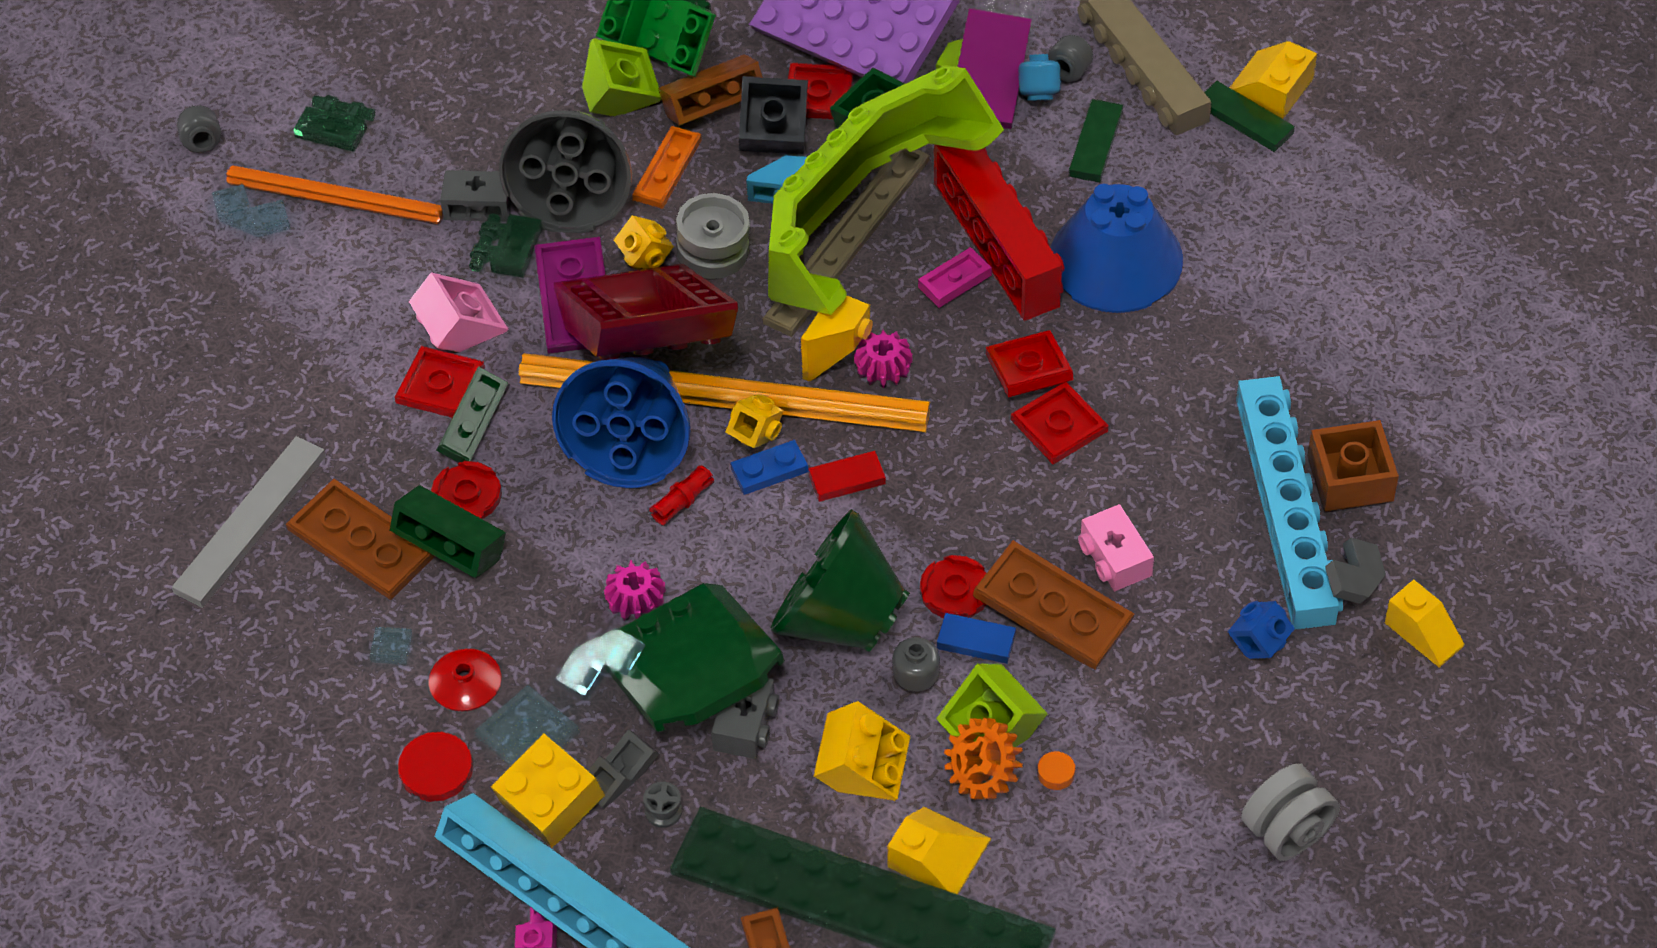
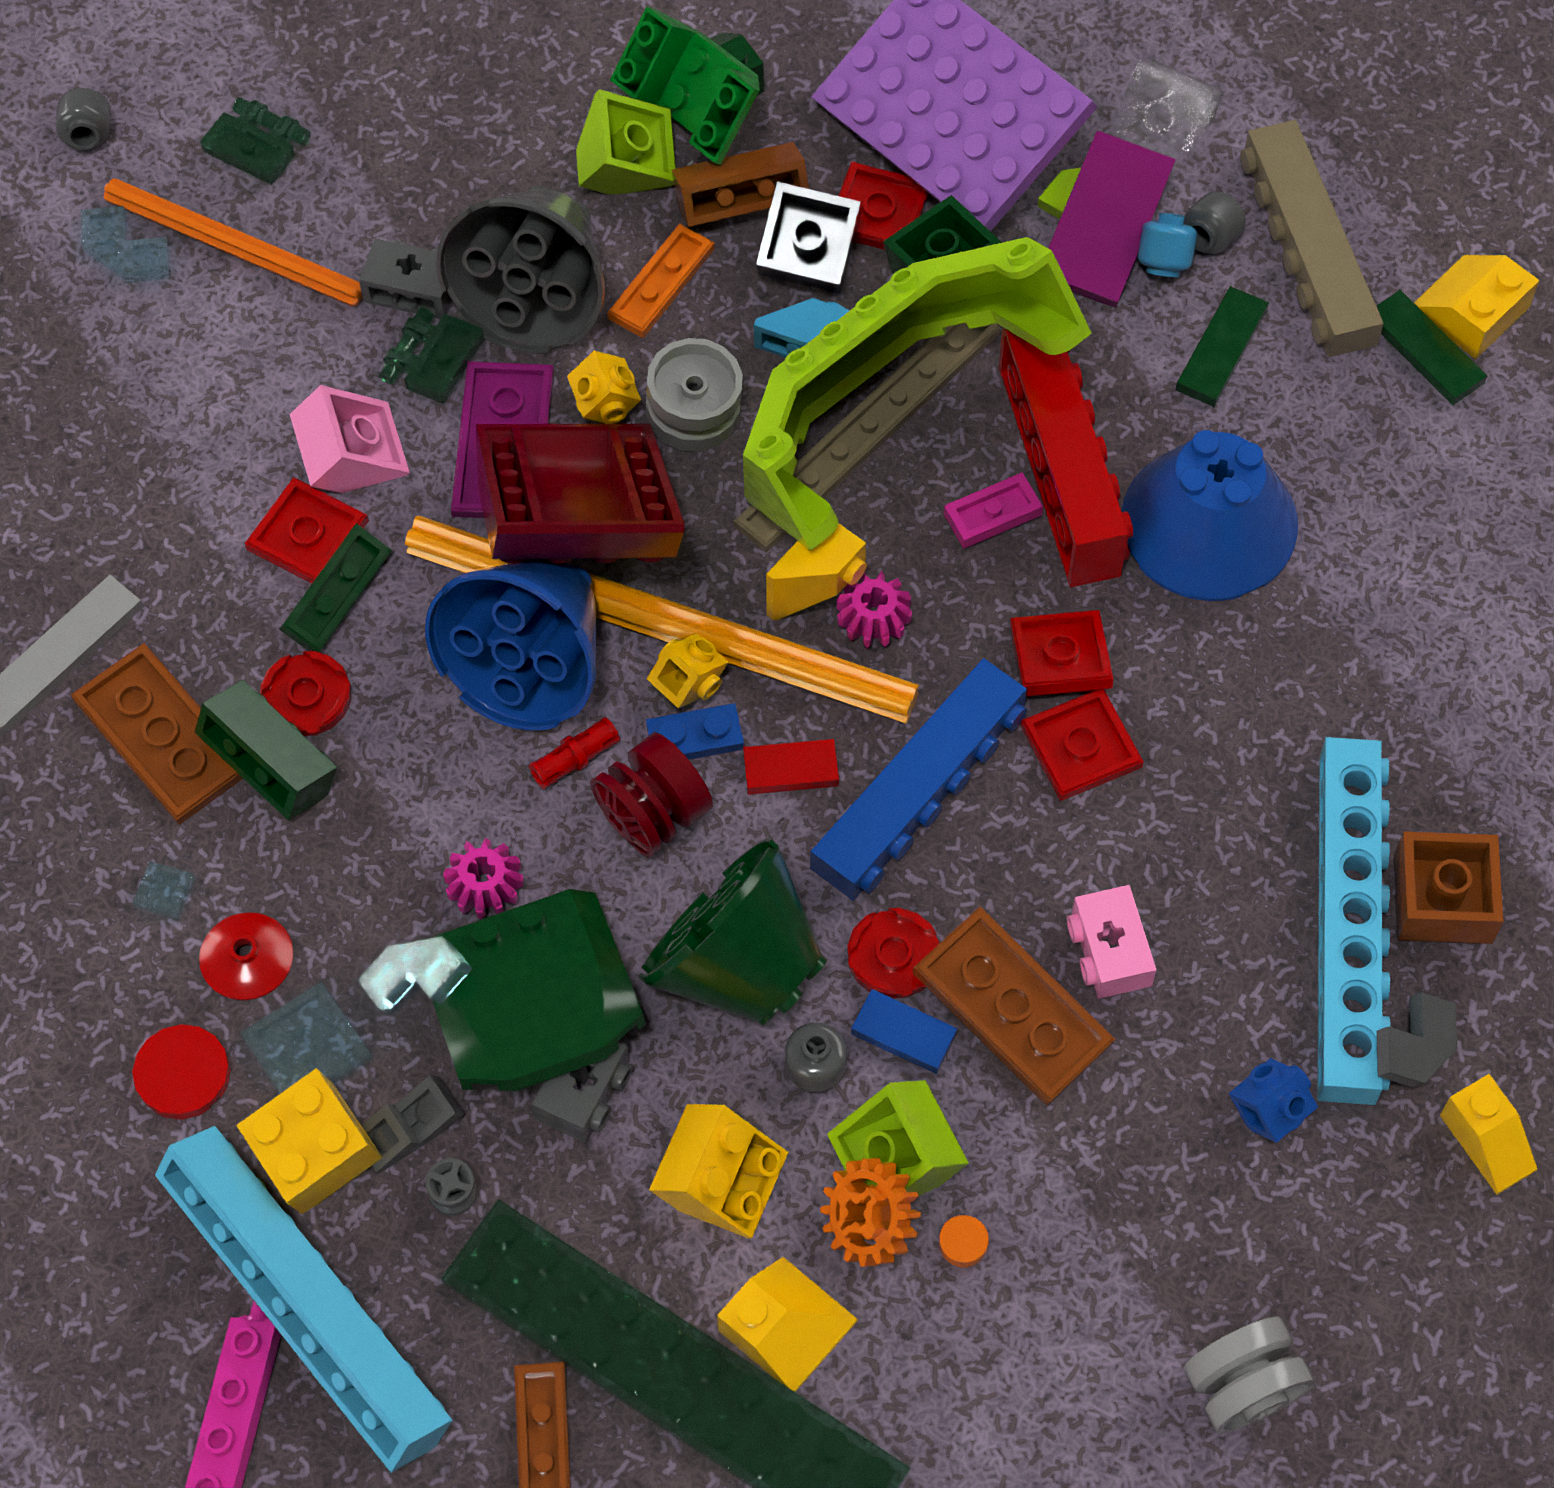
camera: 10 degrees right, 10 degrees up
(749, 507) = (652, 793): none -> dark red wheel
(945, 466) = (918, 780): none -> blue brick

